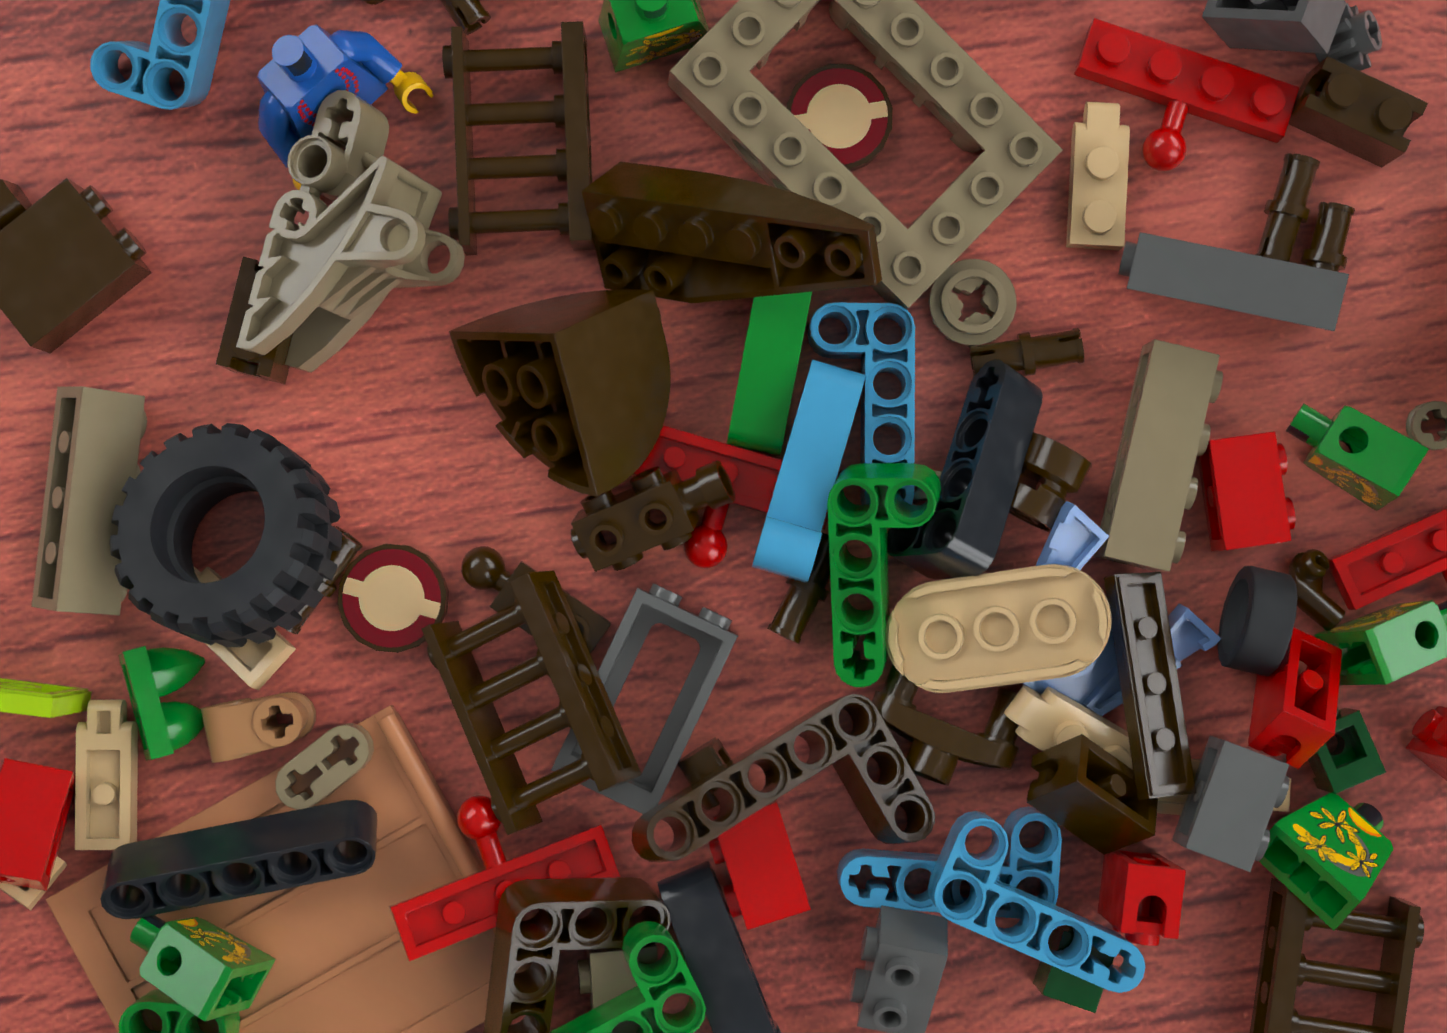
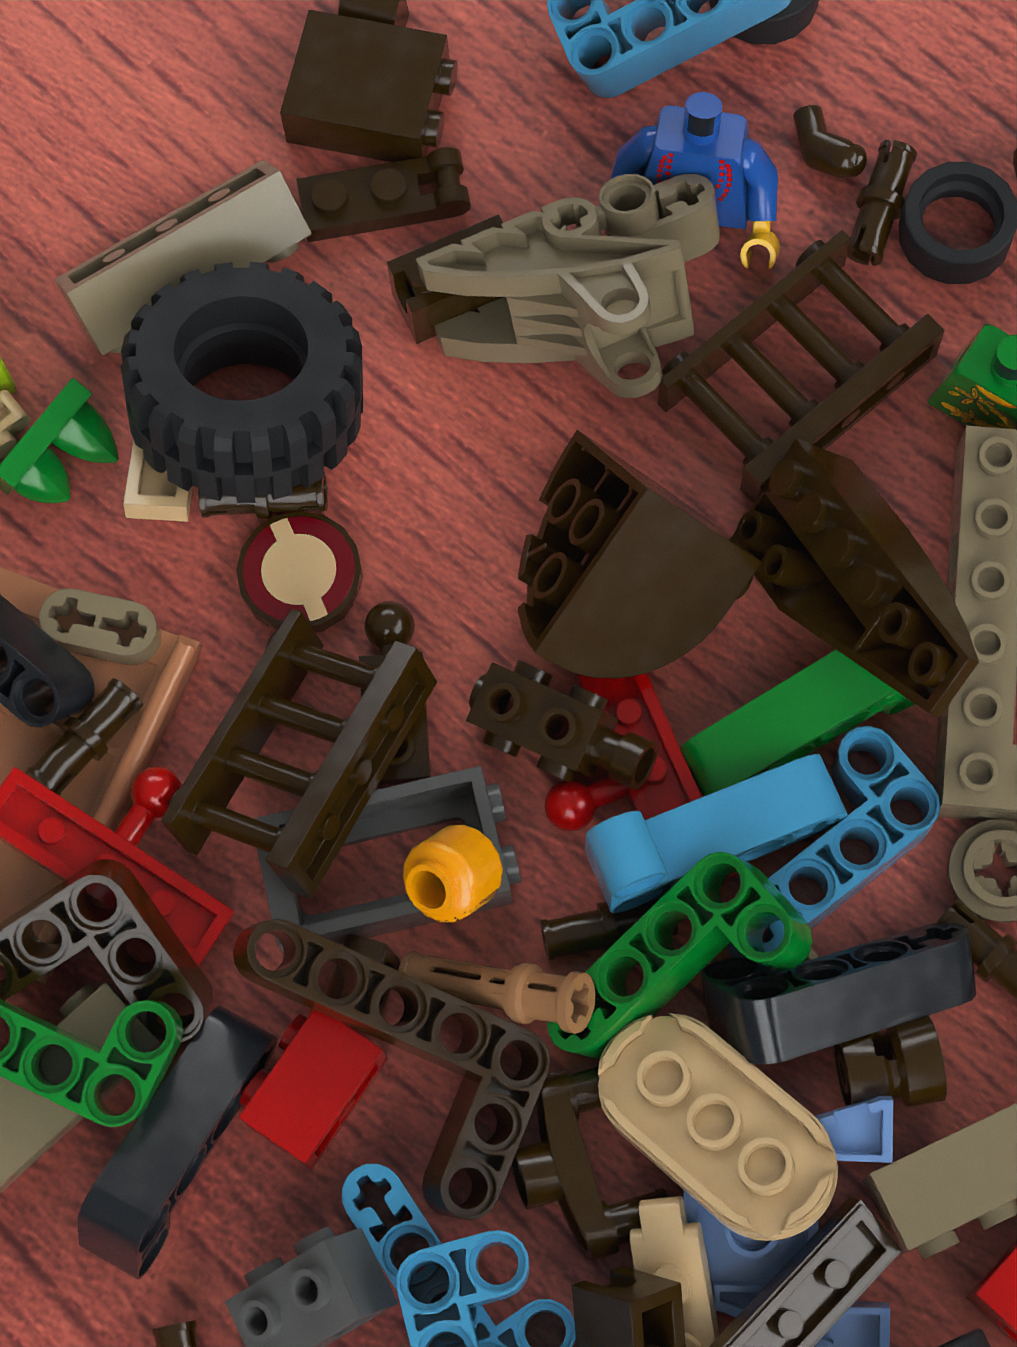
camera: 60 degrees right, 15 degrees down
(151, 320) = (383, 195): none -> dark brown plate
(251, 725) = (89, 538): medium nougat piece -> none
(399, 837) = (85, 737): none -> dark brown pin
(702, 670) = (452, 873): none -> light orange head
(812, 685) = (521, 992): none -> medium nougat pin

